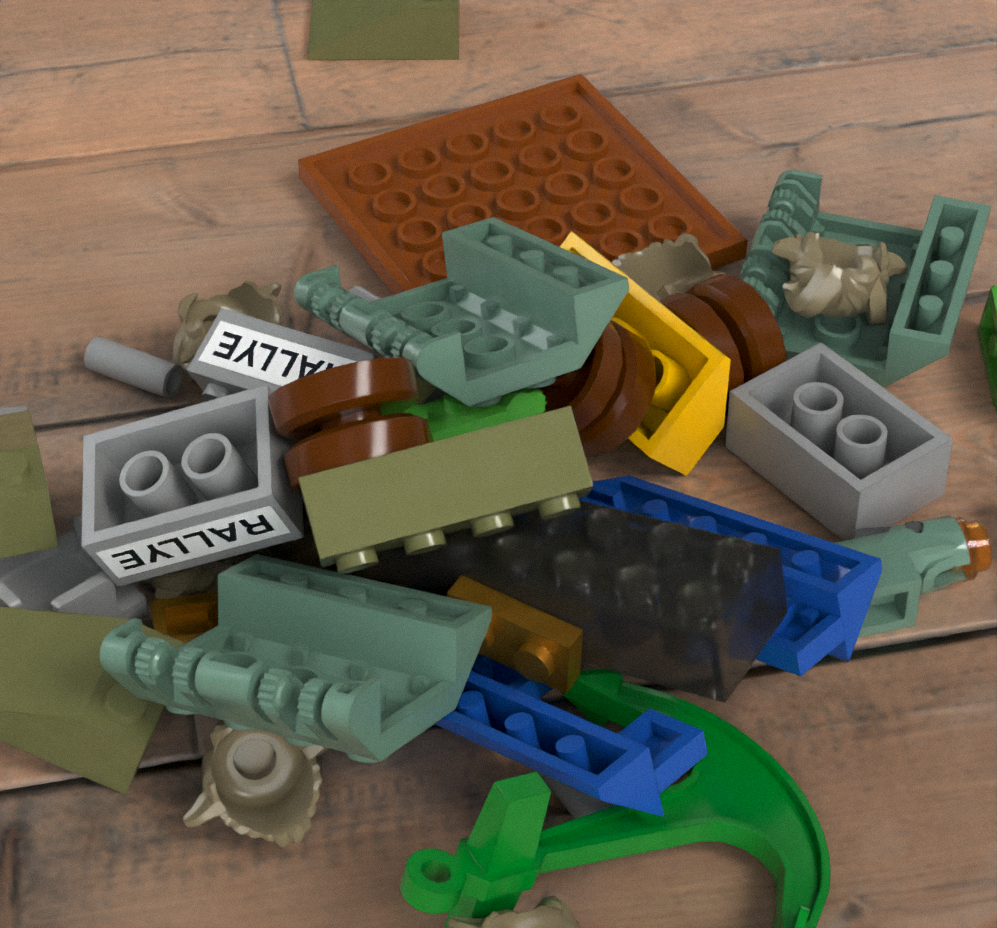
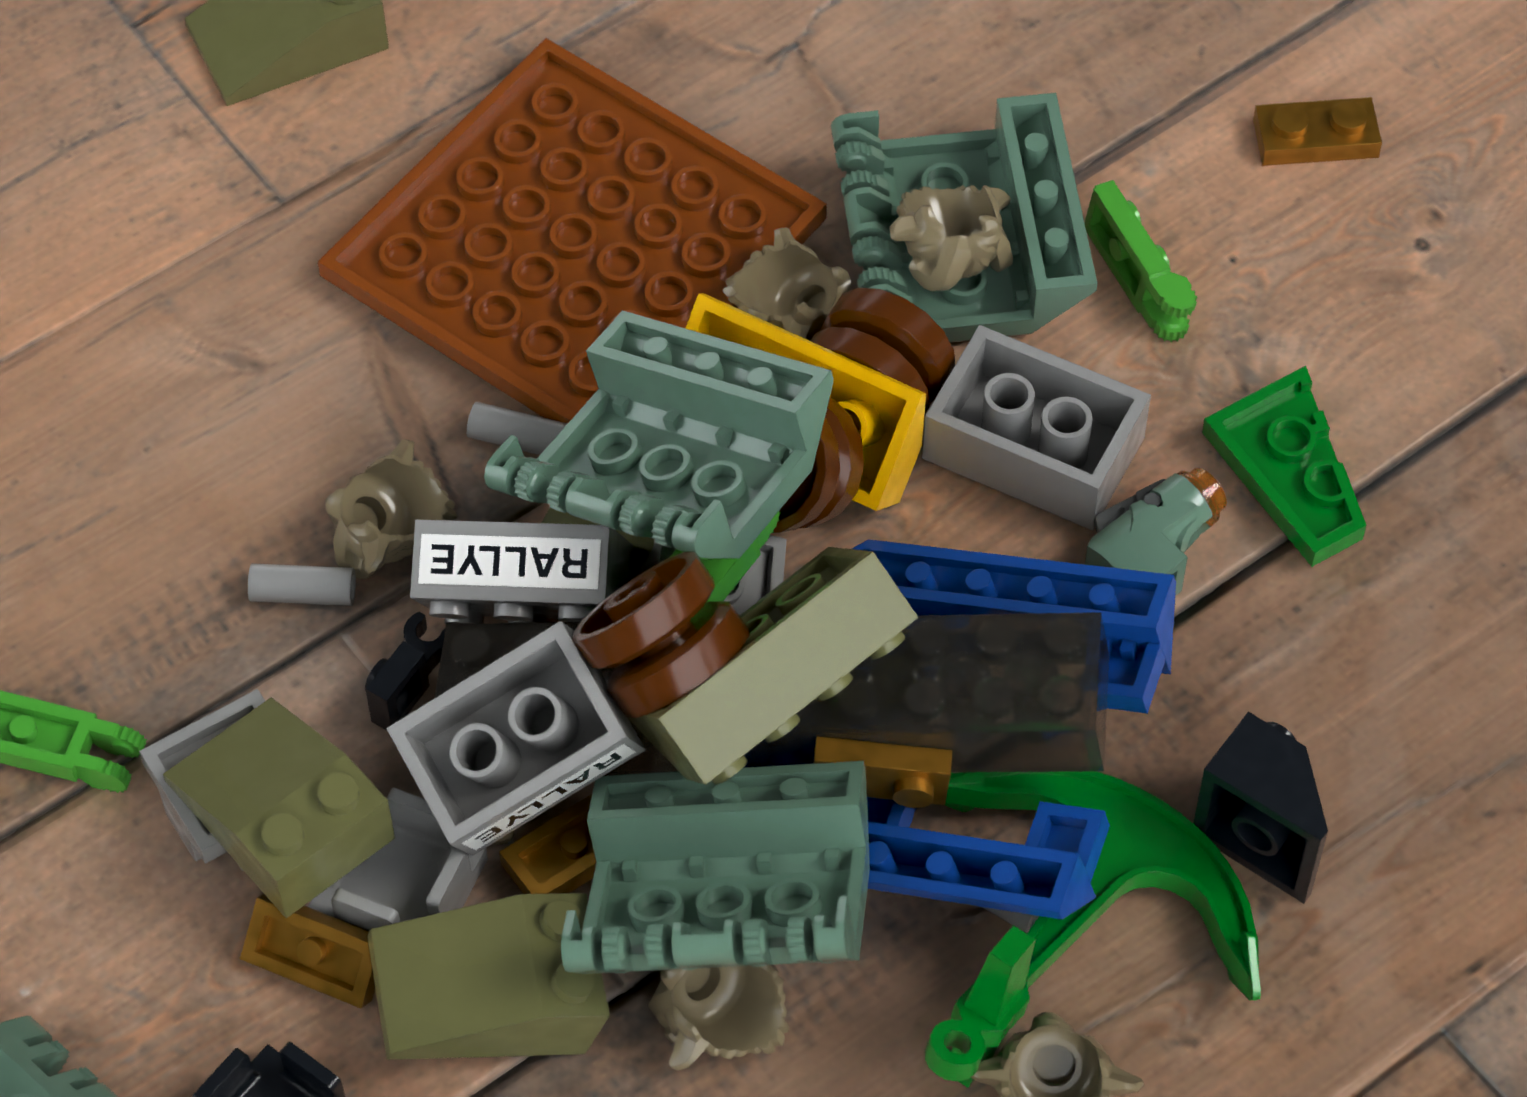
camera: 25 degrees left, 15 degrees up
(877, 798) = (1264, 806): none -> black slope

